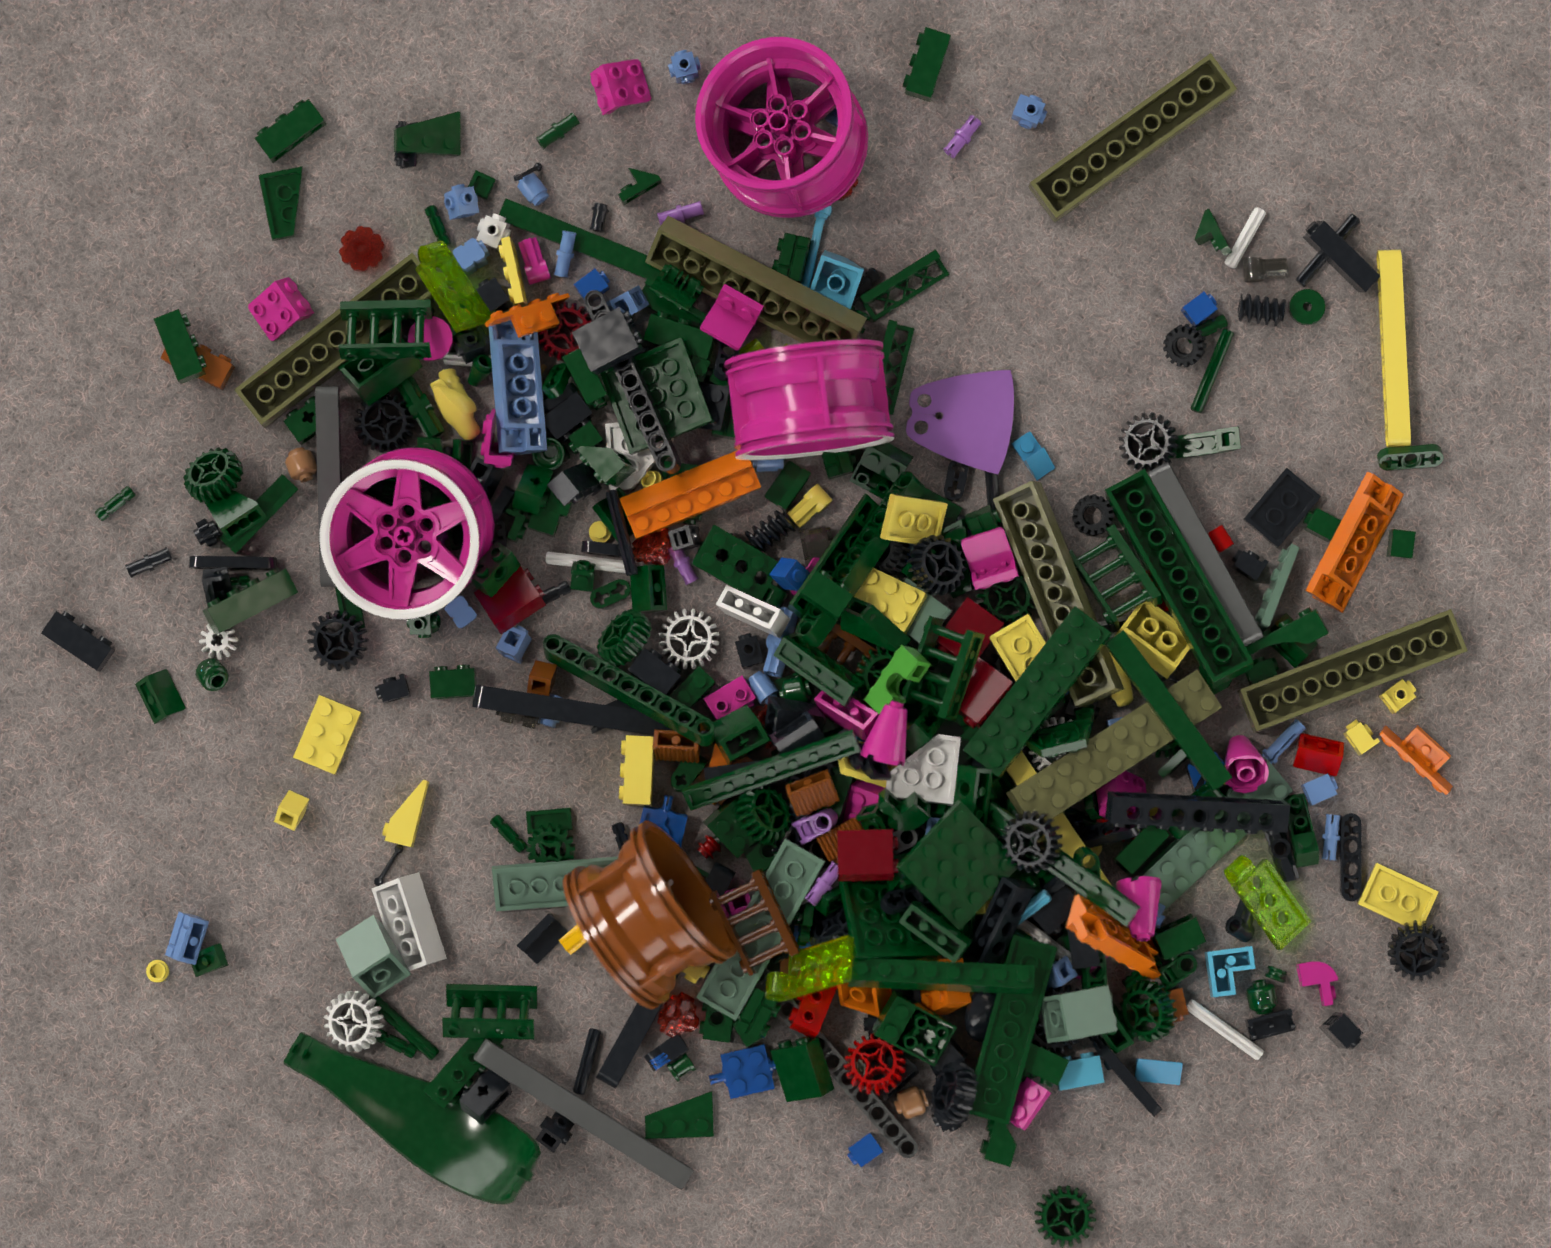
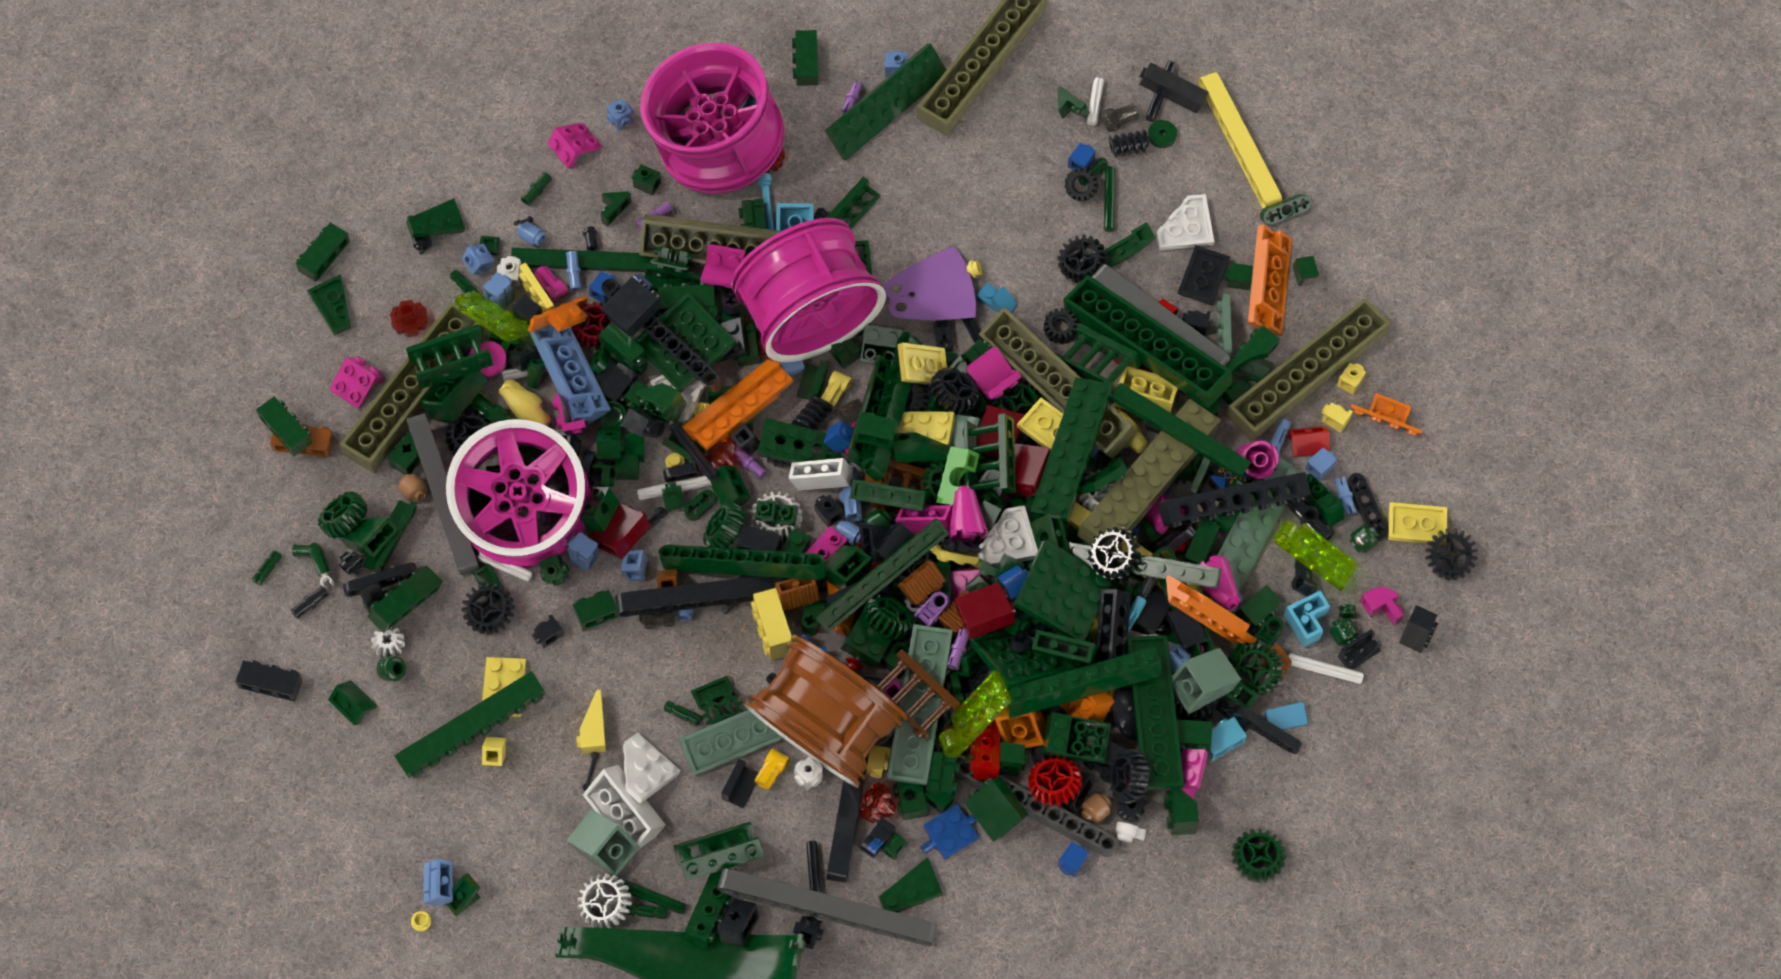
camera: 25 degrees left, 20 degrees down
(172, 514) = (318, 557): none -> dark green arm
(276, 771) = (470, 724): none -> dark green brick
(446, 887) = (645, 768): none -> white plate
(686, 163) = (646, 179): none -> dark green brick
(687, 641) = (776, 514): none -> dark green slope
(840, 1019) = (1012, 759): none -> dark green brick
(910, 832) = (1013, 580): none -> blue brick
(935, 1139) = (1127, 832): none -> white piece
(999, 158) = (886, 101): none -> dark green plate
(1021, 409) = (974, 268): none -> light yellow plate
(1288, 438) = (1187, 226): none -> white plate
(1329, 896) = (1364, 538): none -> dark green head

